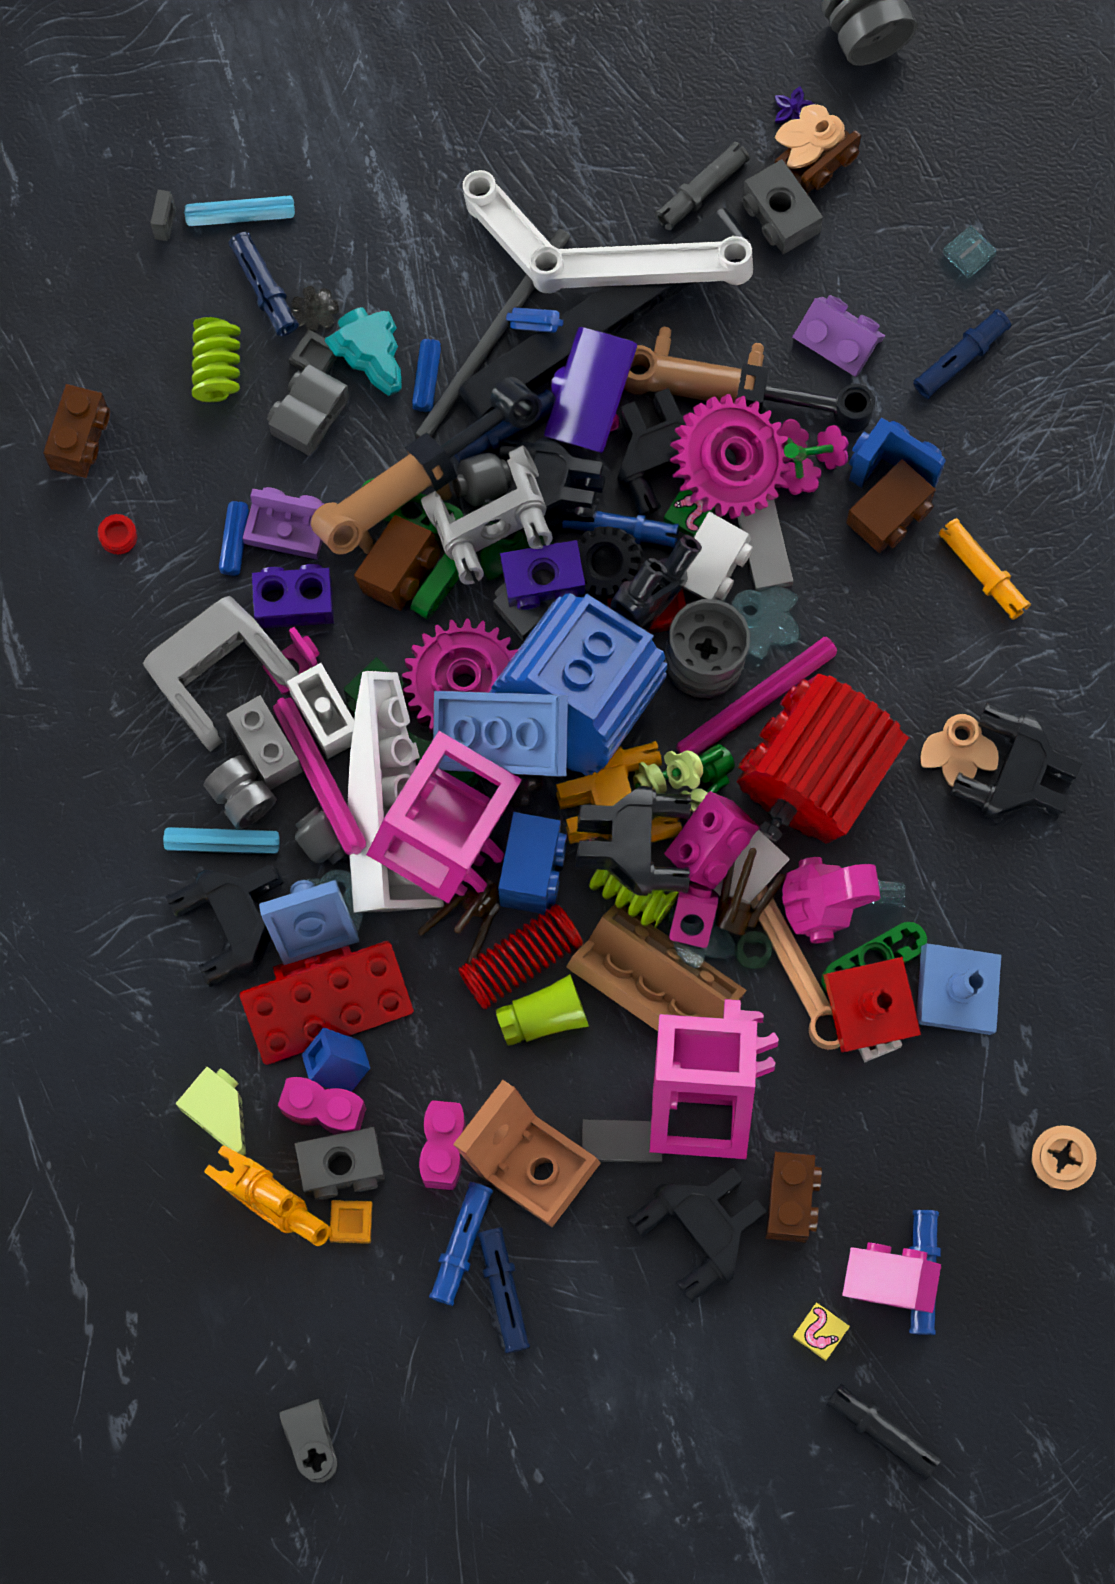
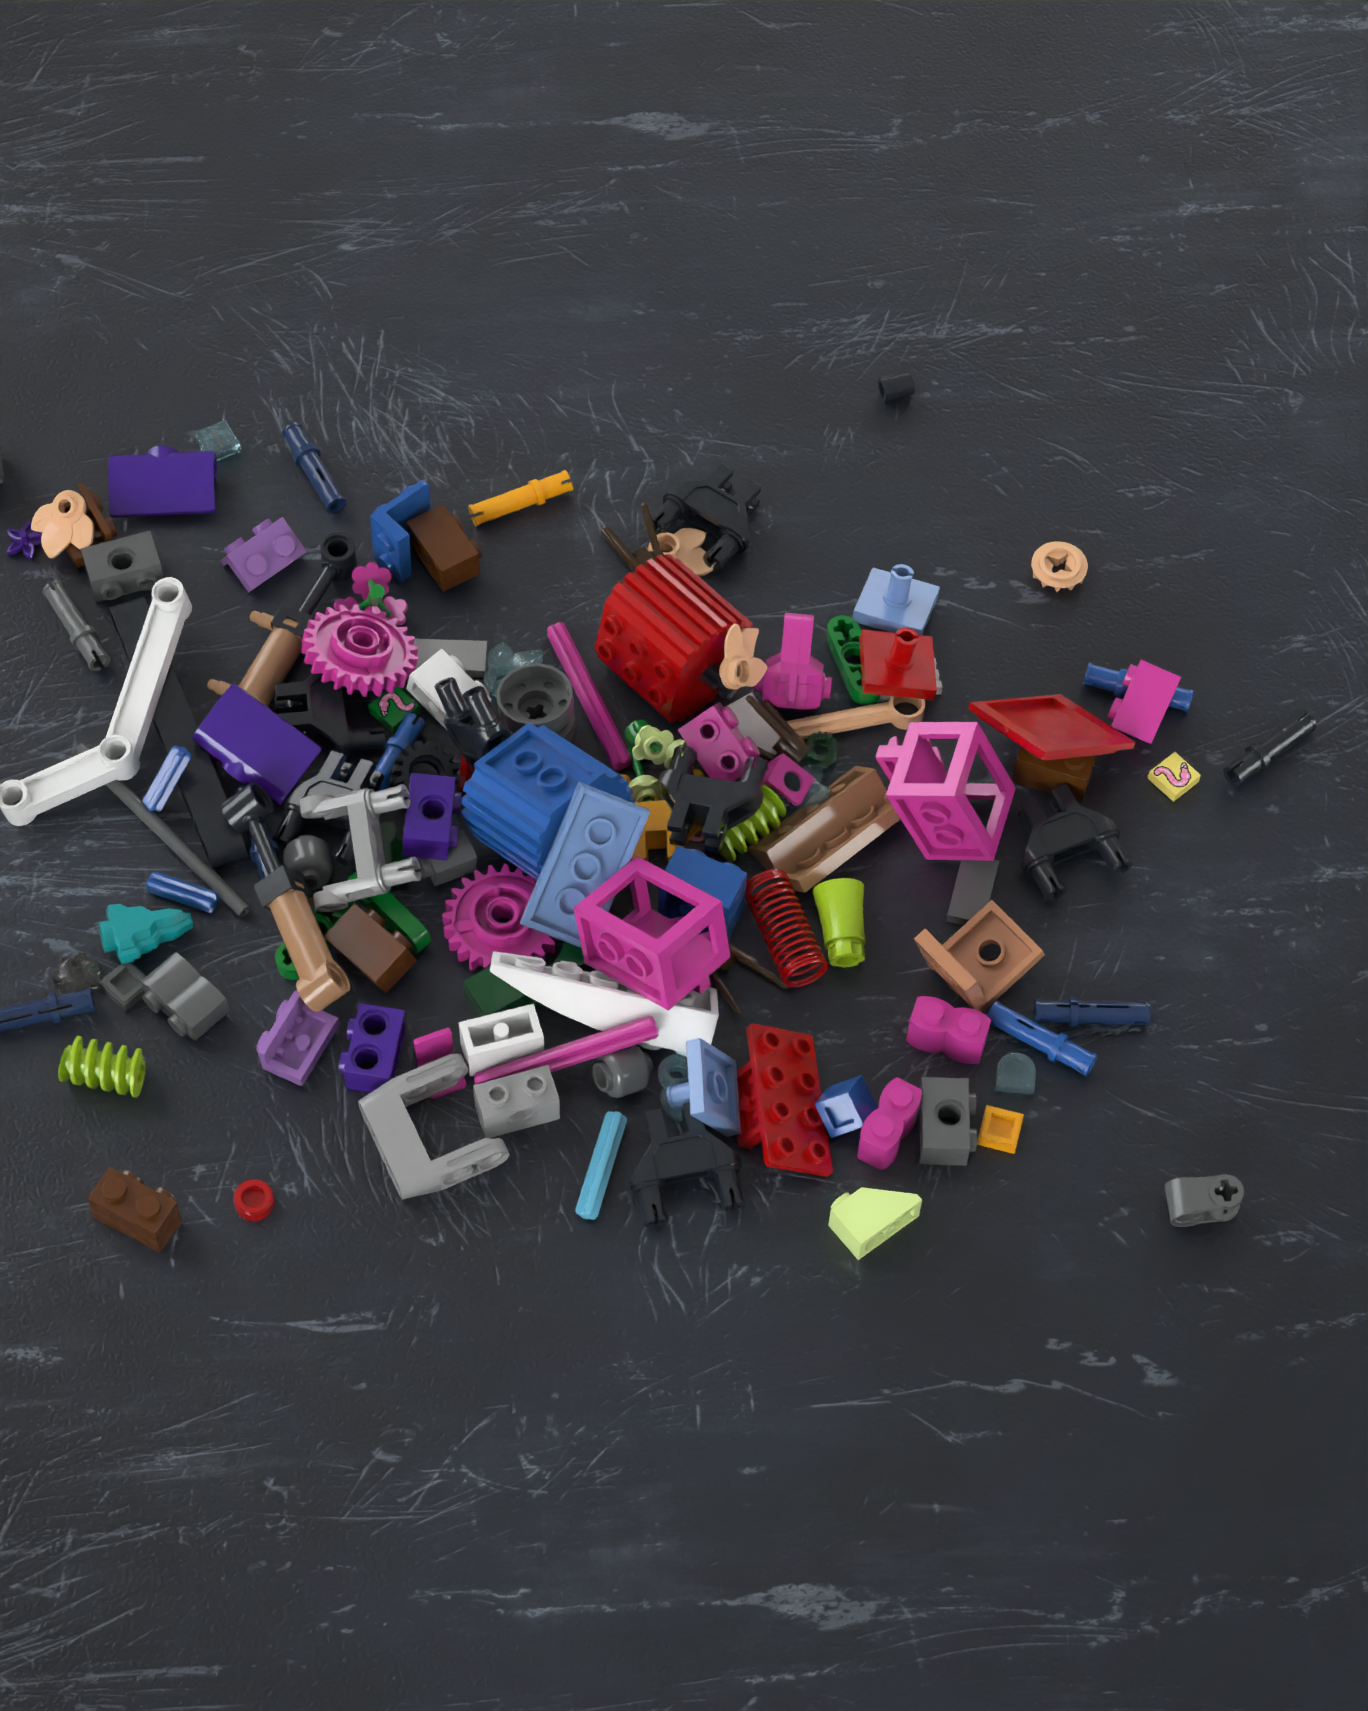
camera: 80 degrees left, 15 degrees down
(232, 542) = (294, 1093): blue axle -> none
(243, 796) = (561, 1132): flat silver wheel -> none
(268, 1198) = (968, 1179): light orange connector -> none
(417, 1225) = (1015, 1074): none -> clear light blue tile
(798, 832) = (739, 665): none -> light nougat plate
(821, 1179) = (1051, 726): none -> red piece
(896, 212) = (162, 483): none -> dark purple panel
(930, 712) = (641, 555): none -> dark brown plant

